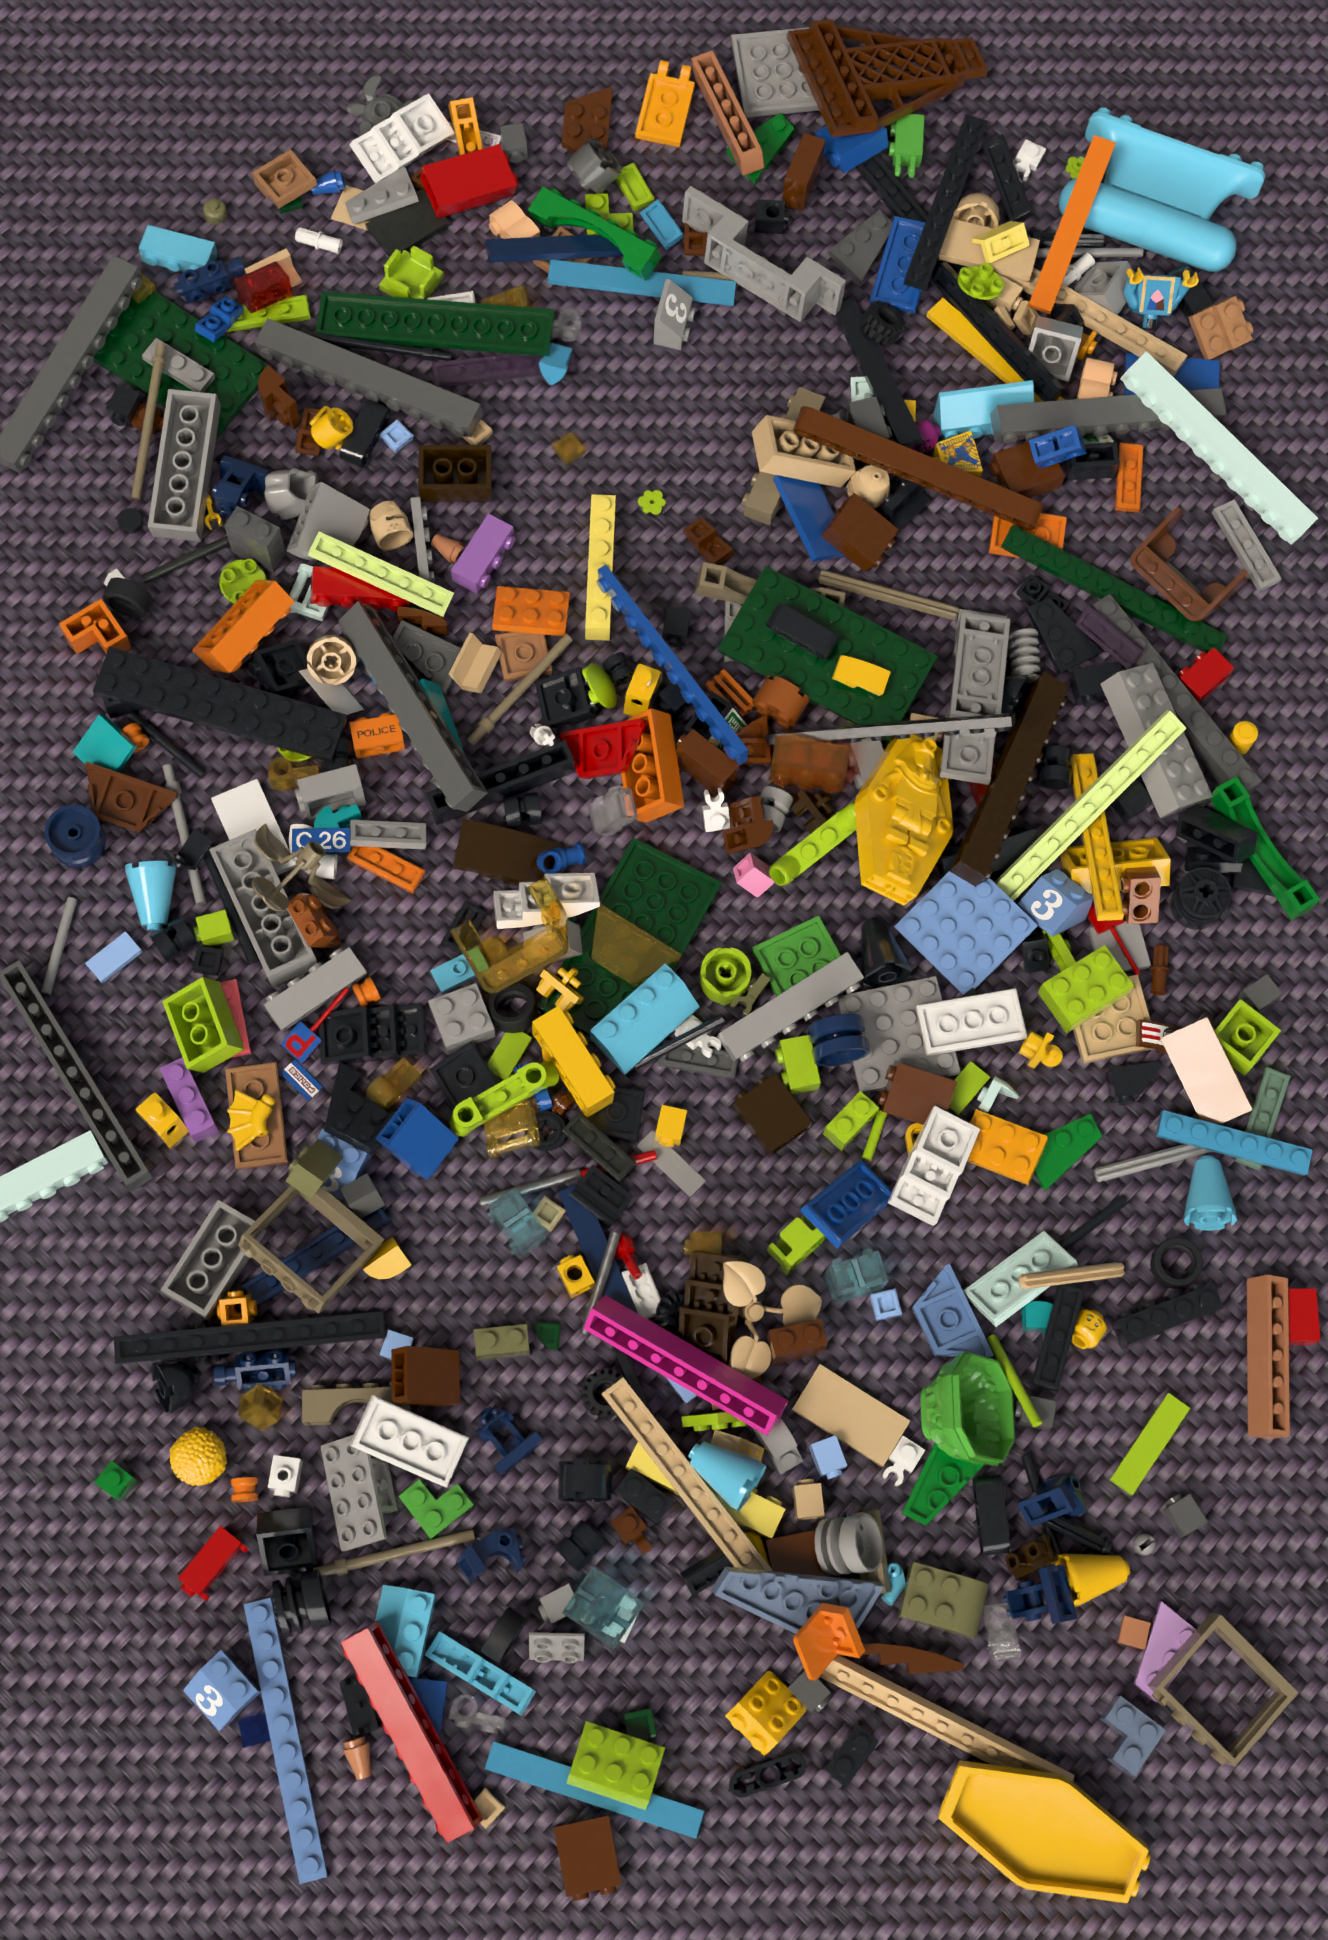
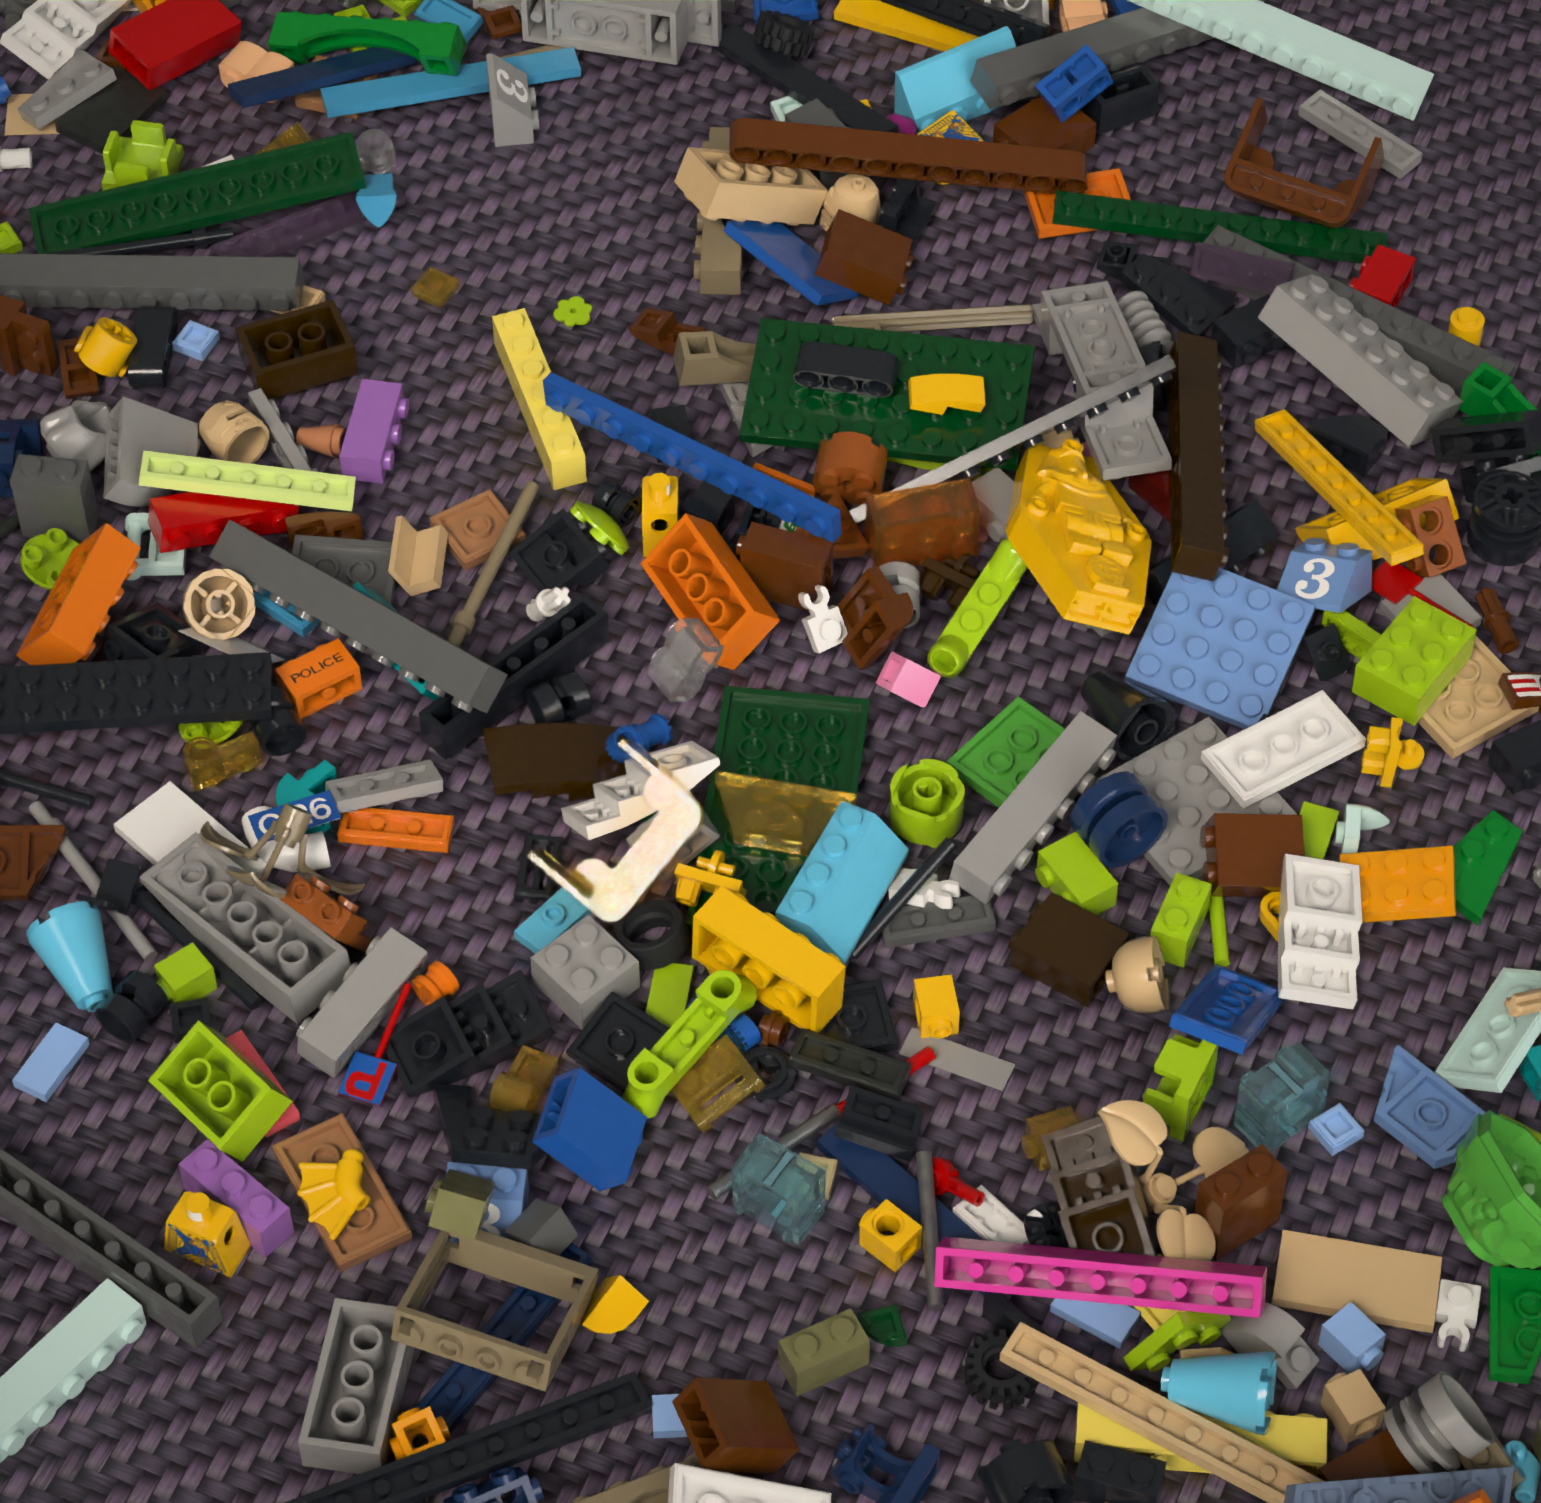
camera: 15 degrees left, 20 degrees down
(301, 1080) = (387, 1128): sticker -> none
(330, 788) = (295, 728): light grey window -> none
(531, 611) = (466, 475): orange plate -> none
(604, 748) = (643, 587): red wing -> none
(755, 990) = (975, 809): olive plate -> none
(805, 1155) = (1139, 976): none -> tan cylinder
(1055, 767) = (1246, 436): black wheel -> none
(1090, 805) = (1316, 444): yellowish green plate -> none
(1129, 477) = (1178, 111): orange tile -> none

